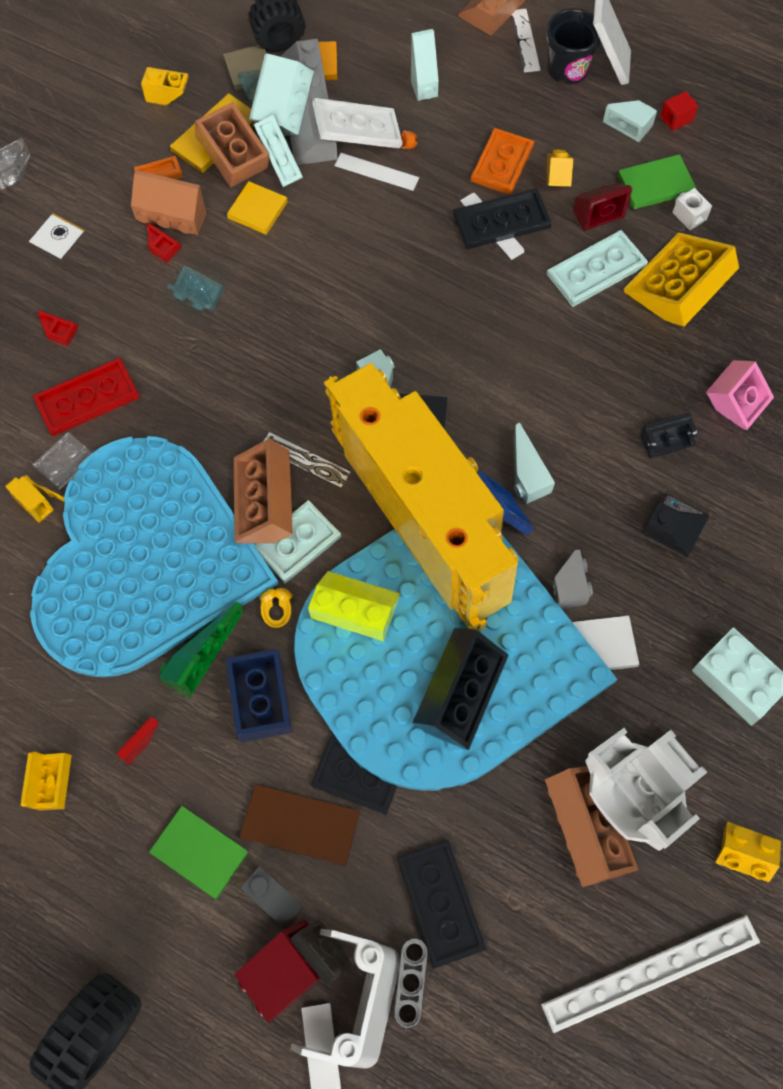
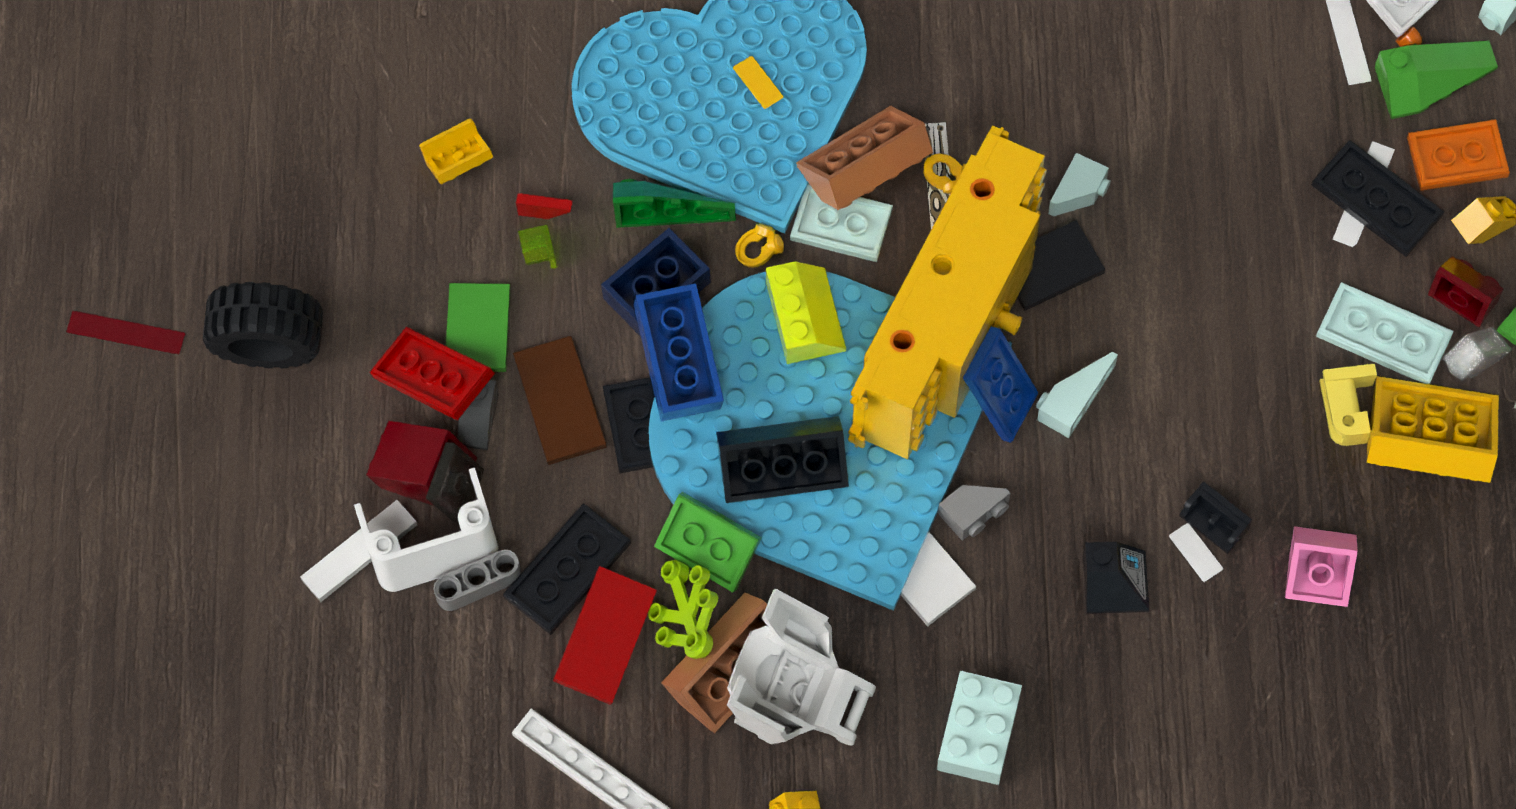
camera: 60 degrees right, 0 degrees up
(153, 531) = (758, 82): none -> yellow sticker
(167, 765) = (537, 246): none -> clear neon green panel
(218, 913) = (432, 373): none -> red tile
(317, 443) = (942, 182): none -> yellow piece
(334, 711) = (678, 352): none -> blue brick
(438, 145) = (1423, 74): none -> bright green wedge
(488, 782) = (708, 539): none -> bright green tile
(515, 908) = (604, 635): none -> red tile
(539, 831) = (697, 641): none -> lime plant
(635, 317) = (1338, 388): none -> light yellow piece
(646, 226) = (1476, 353): none -> clear slope
(682, 463) = (1196, 552): none -> white sticker

